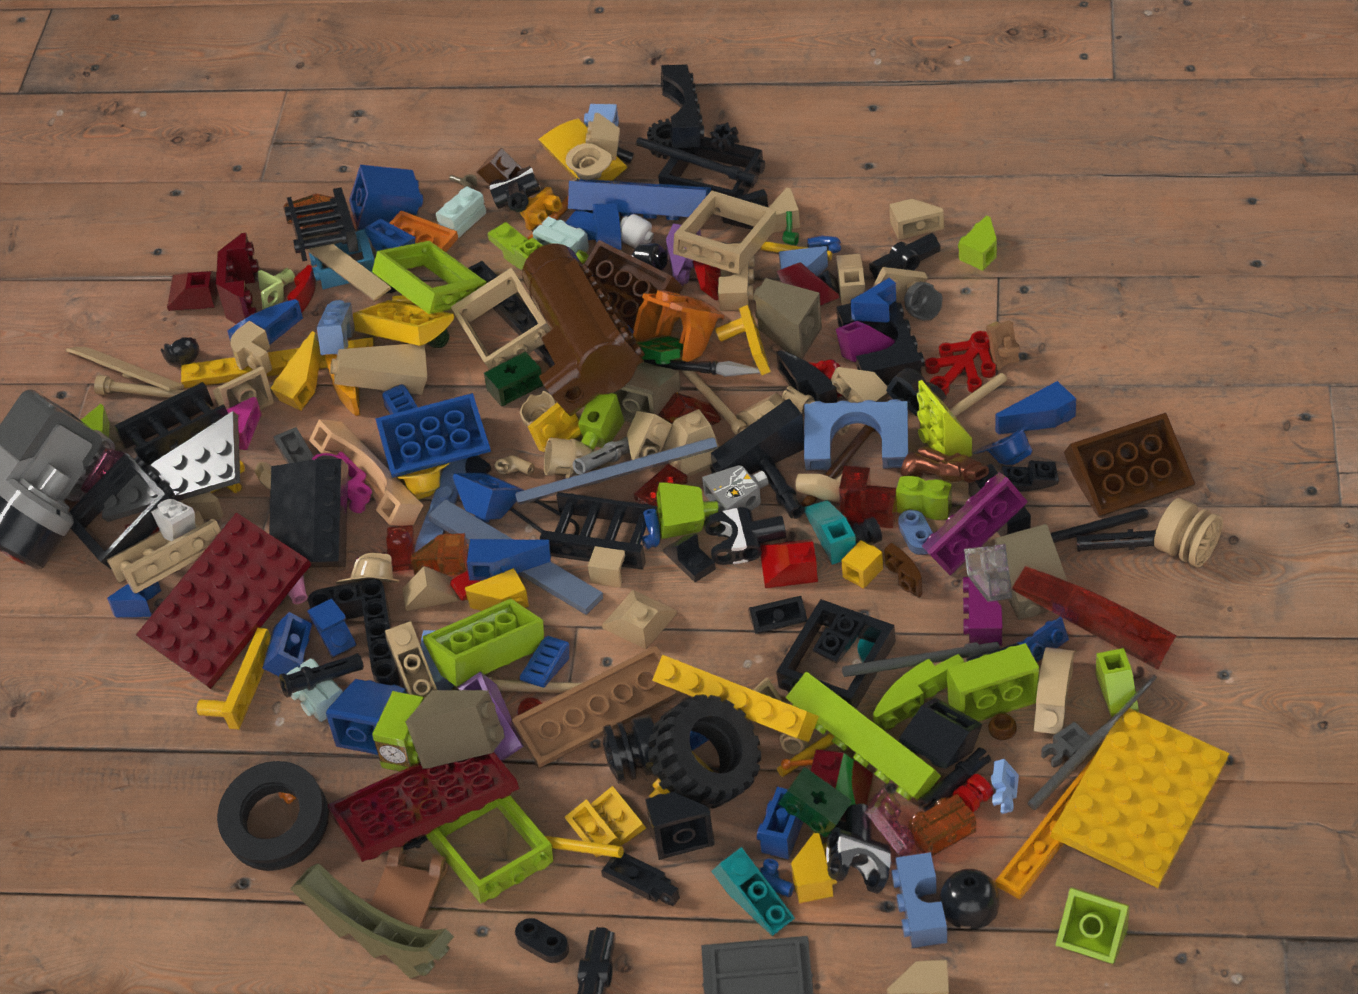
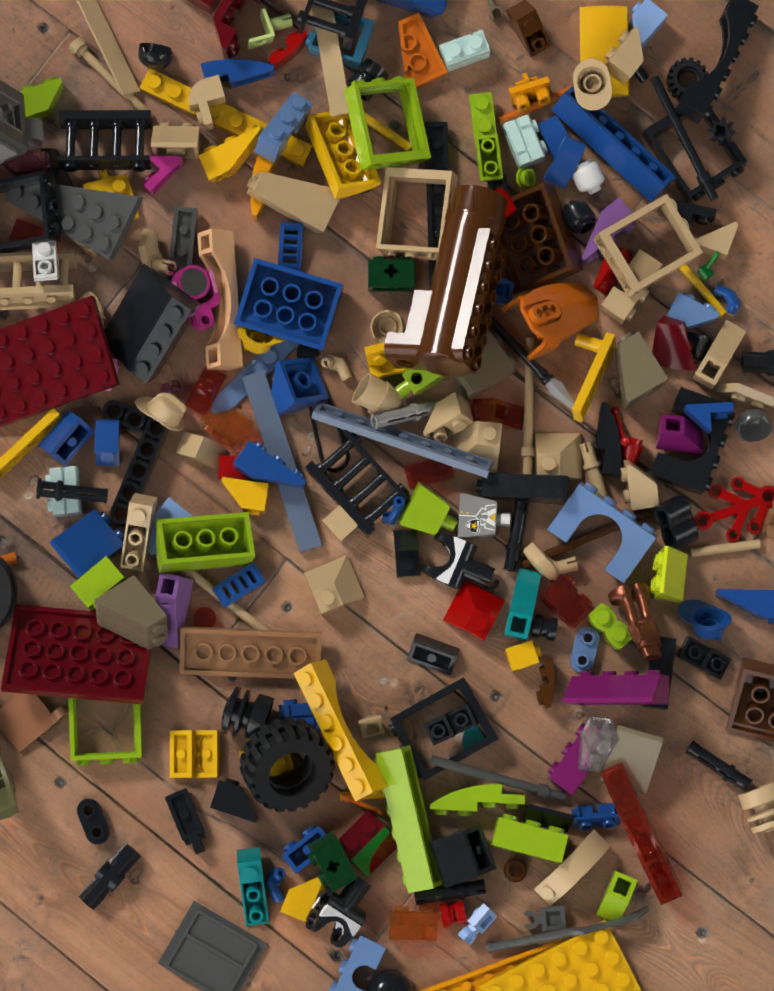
camera: 25 degrees right, 35 degrees up
(386, 235) = (387, 45): blue slope -> none
(516, 190) = (520, 62): black connector -> none
(586, 847) = (165, 768): yellow bar -> none
(661, 349) = (512, 333): green plate -> none
(884, 814) = (374, 900): clear pink plate -> none
(1099, 525) = (664, 726): black piece -> none

